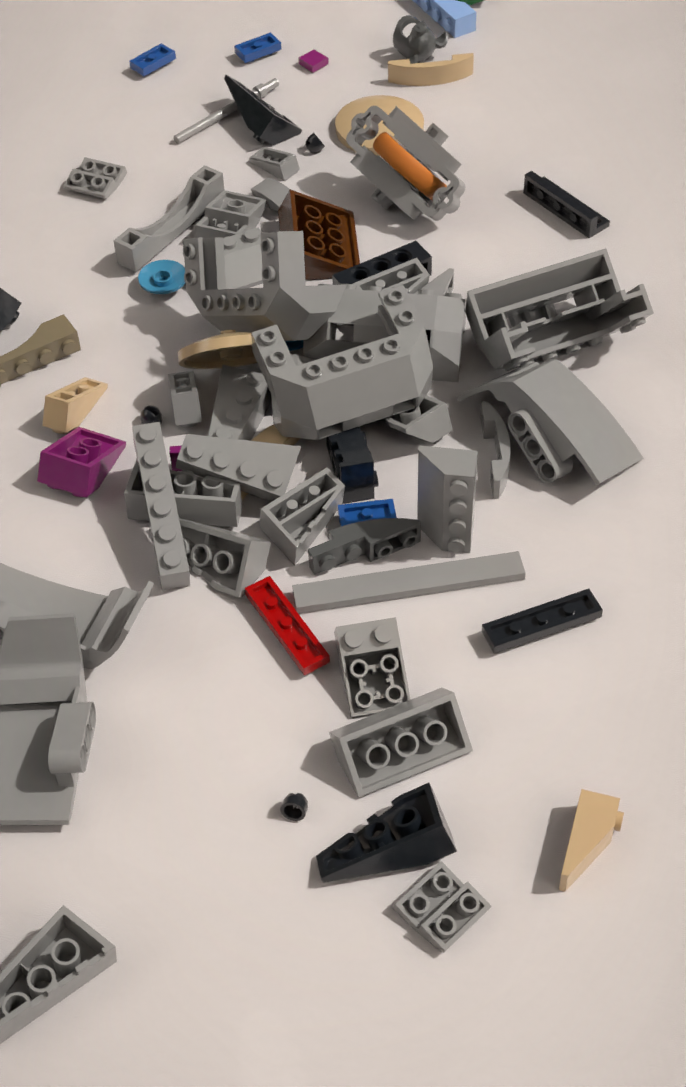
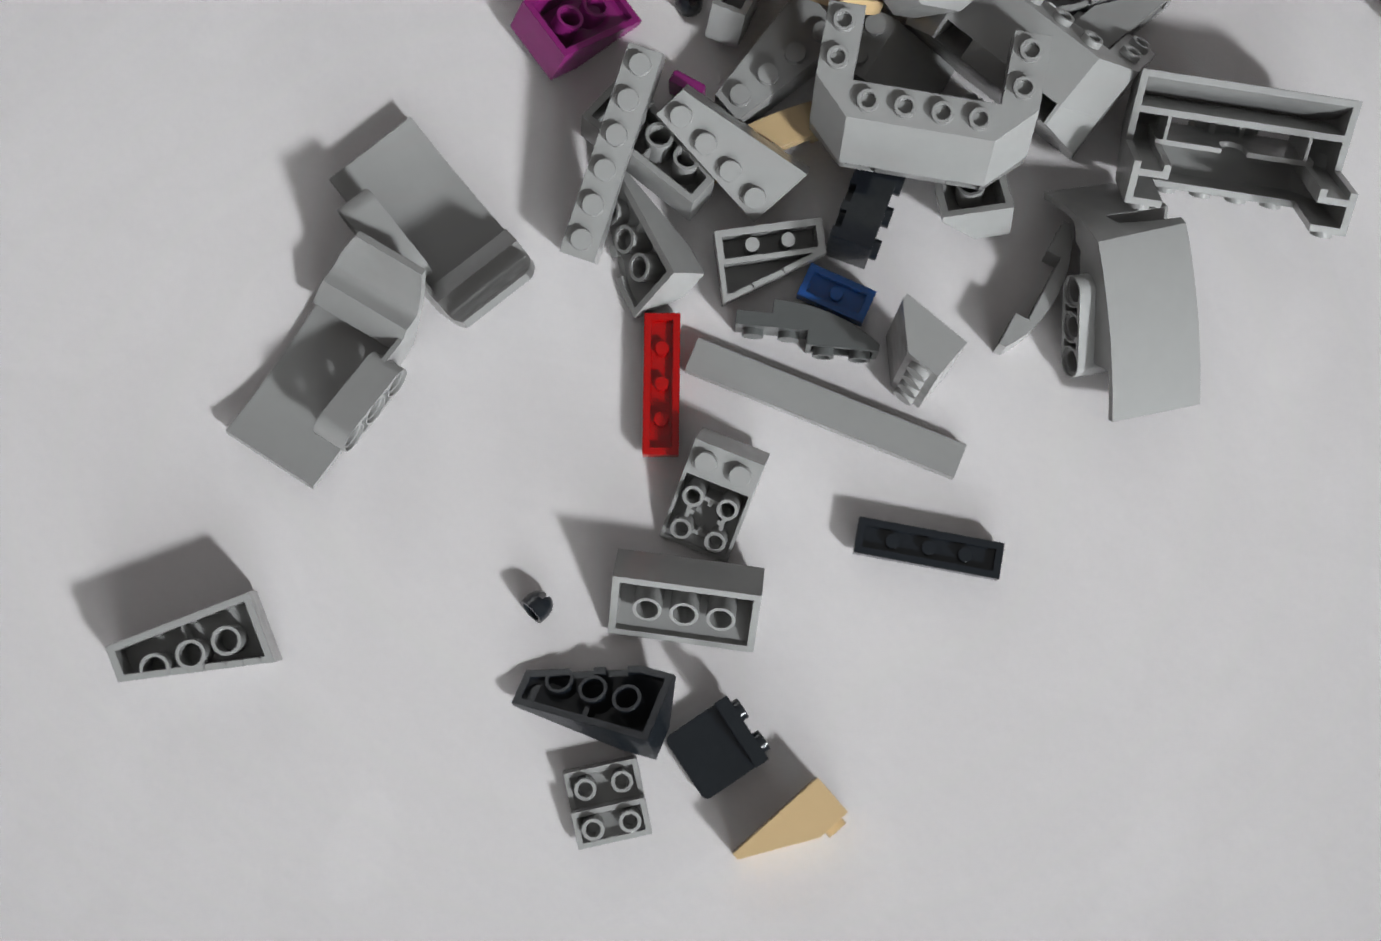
camera: 30 degrees right, 30 degrees up
(496, 816) = (718, 747): none -> black bracket

